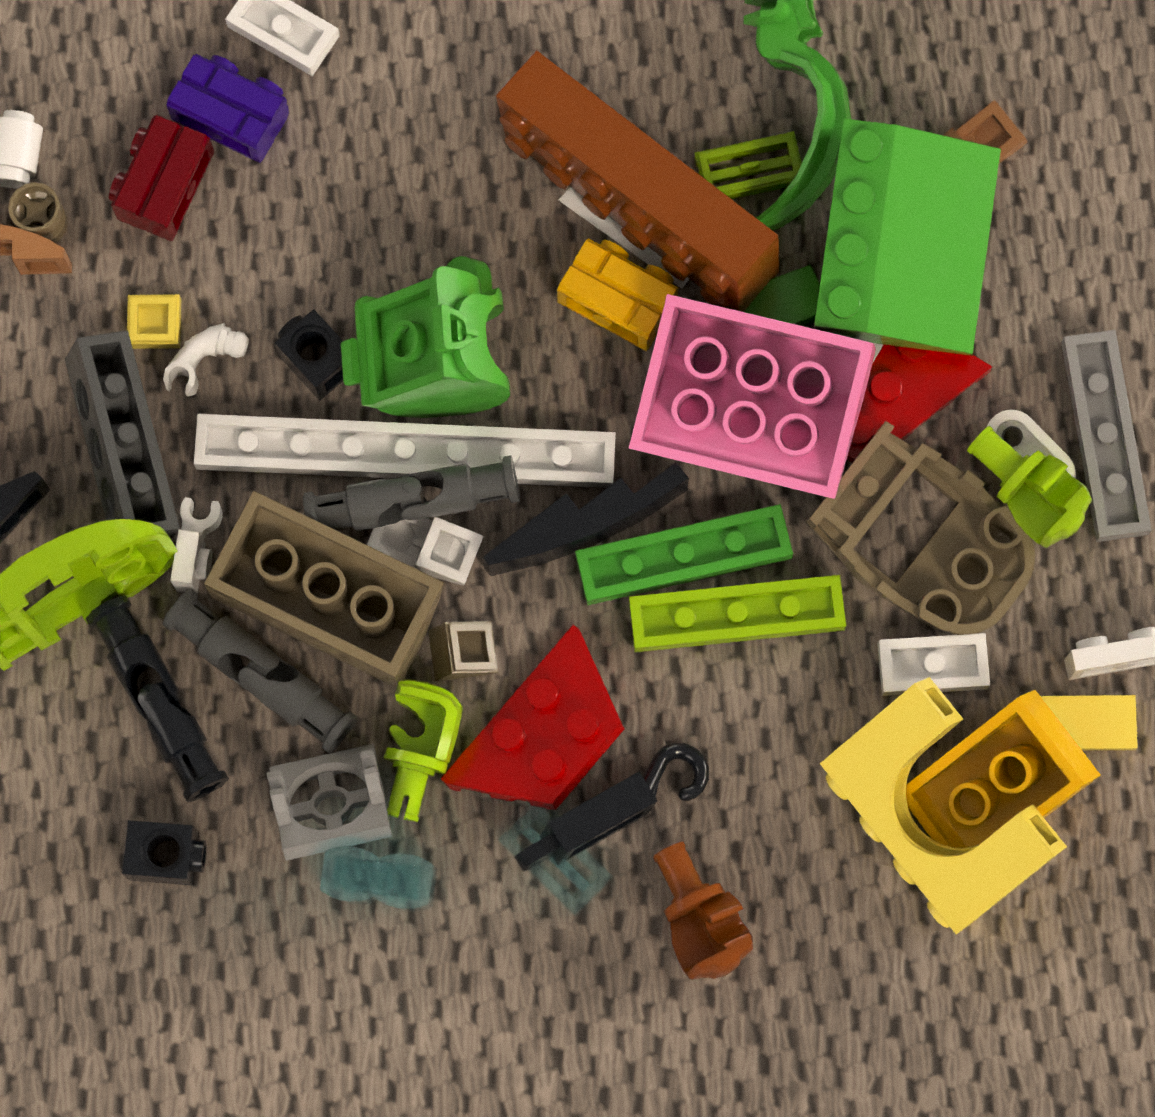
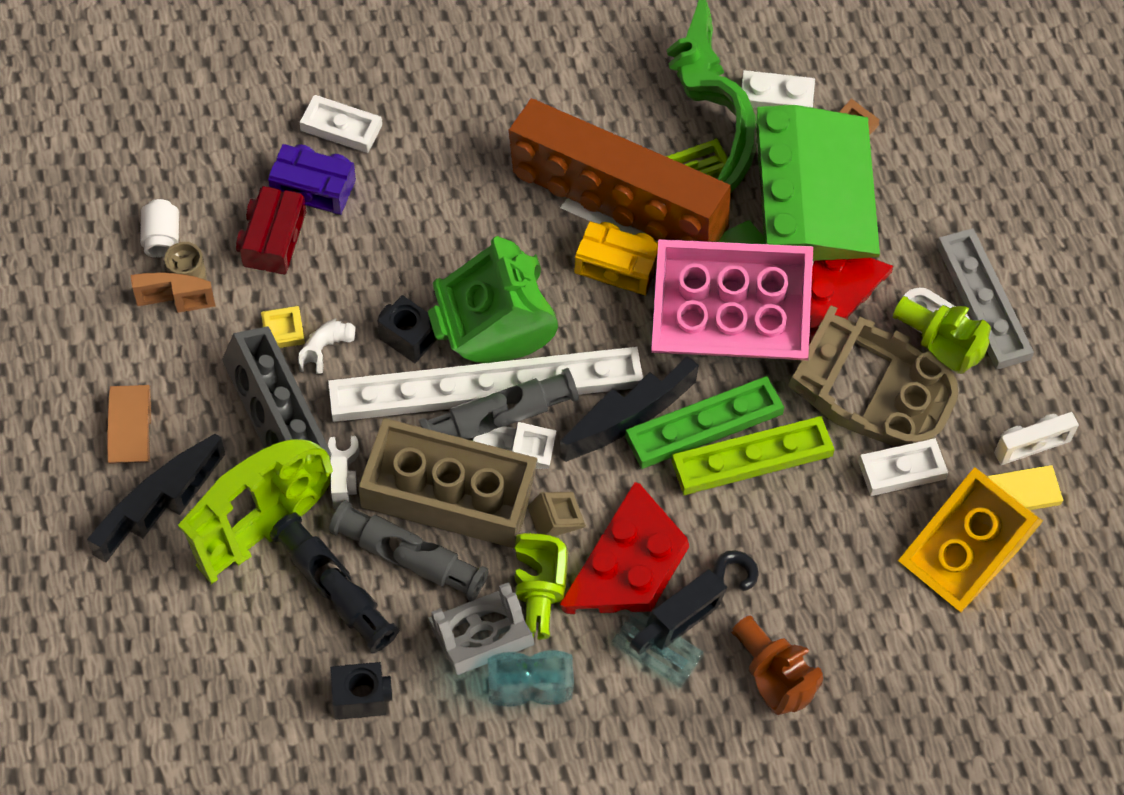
camera: 15 degrees left, 15 degrees down
(873, 776) = (879, 542): light yellow arch -> none
(895, 70) = (777, 89): none -> white plate

